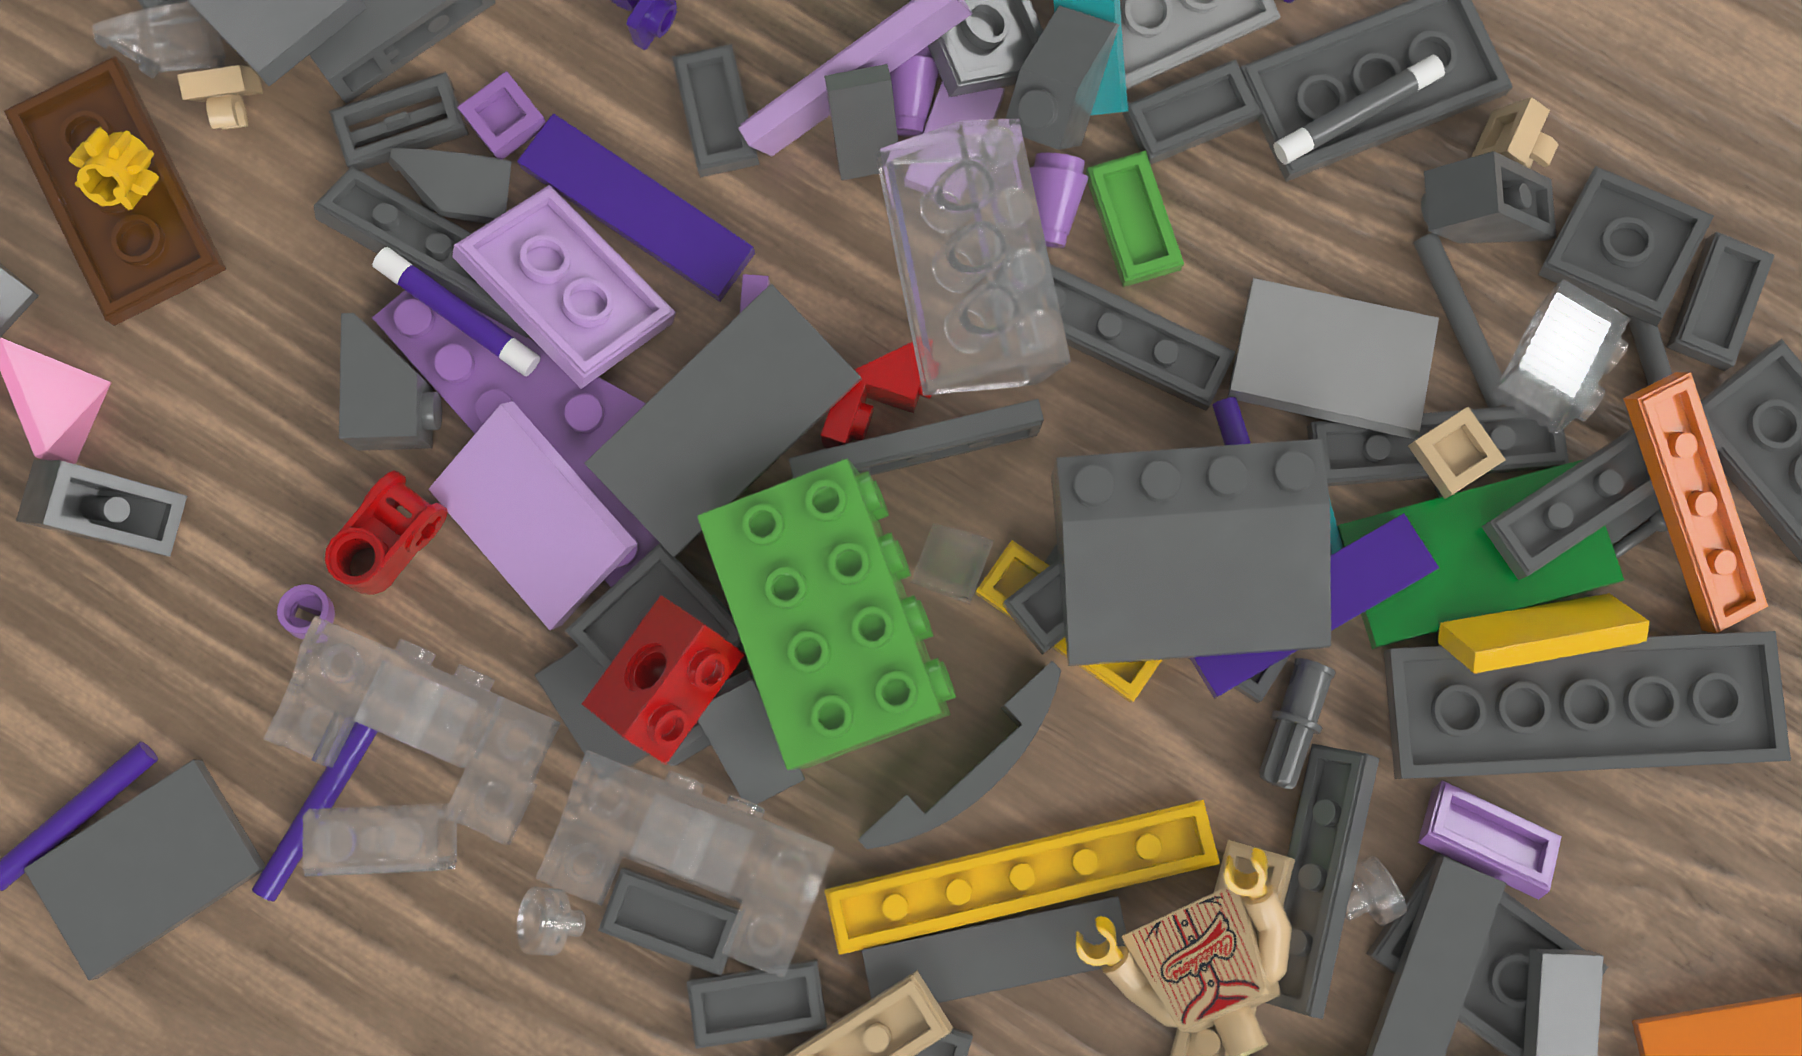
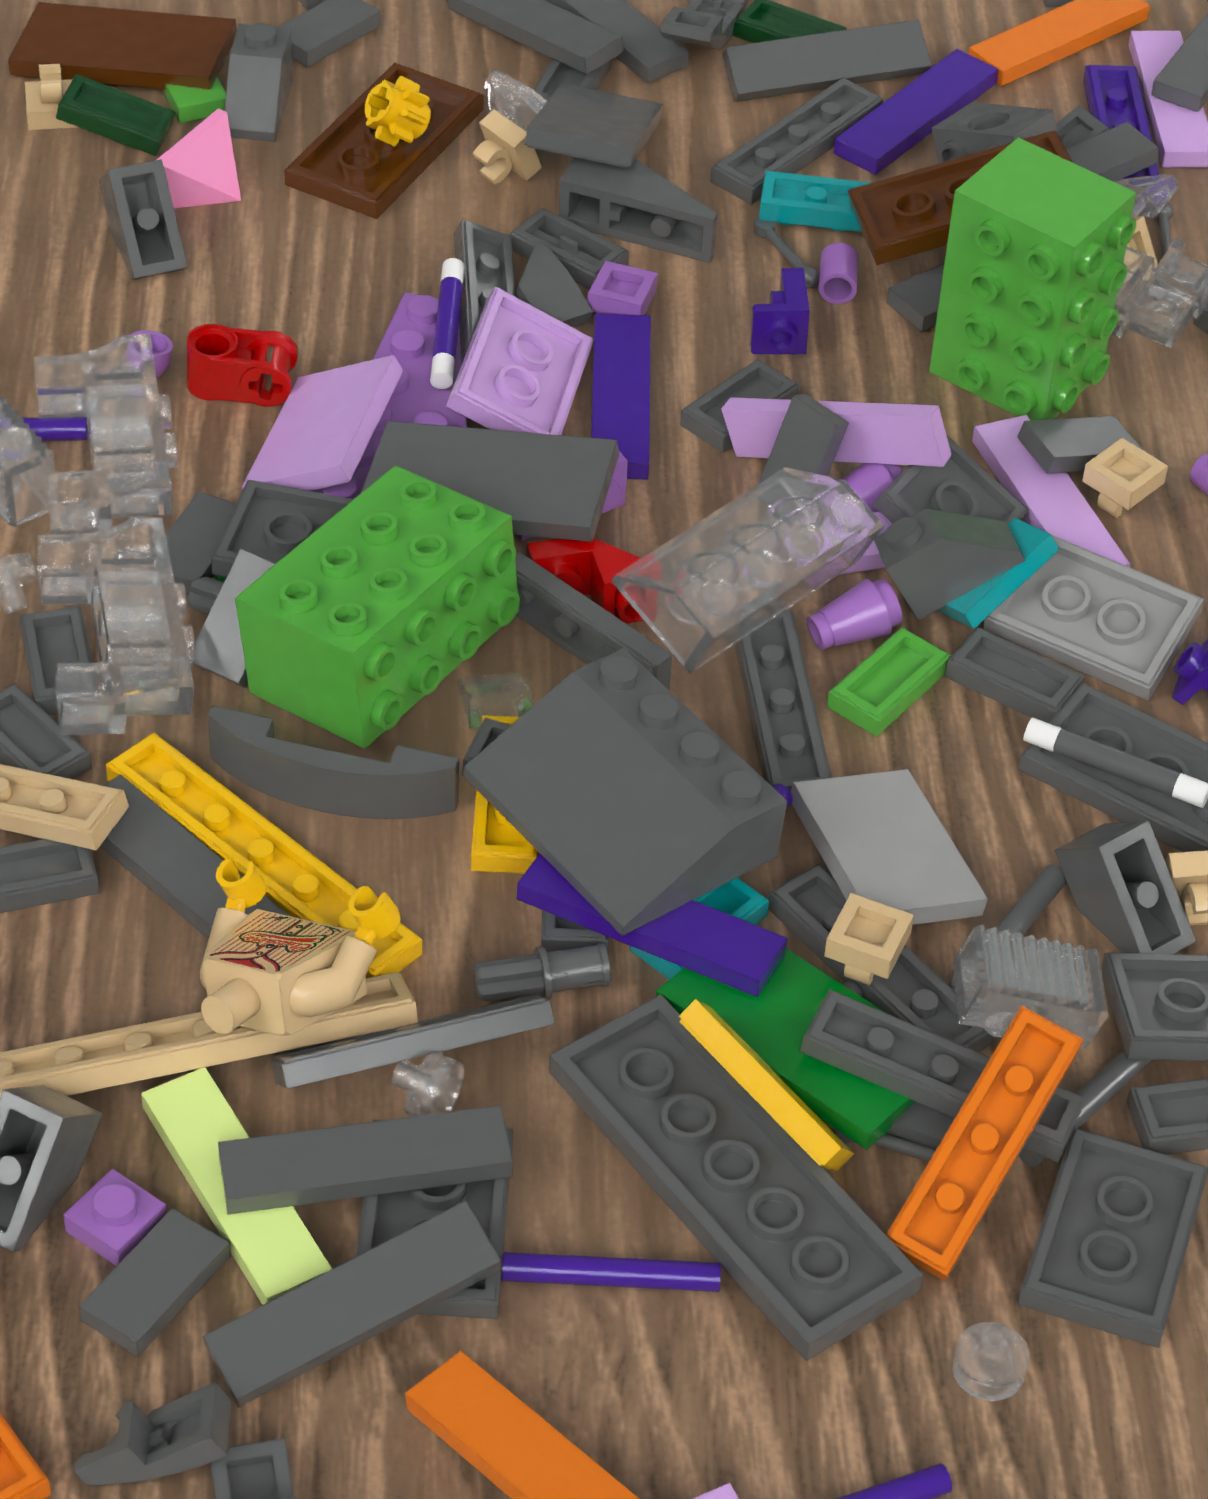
camera: 55 degrees right, 35 degrees down
(382, 395) = (348, 316): dark grey slope -> none
(662, 680) = (249, 515): red brick -> none
(1490, 839) = (547, 1158): medium lavender tile -> none
(1616, 854) = (611, 1271): none -> dark purple bar

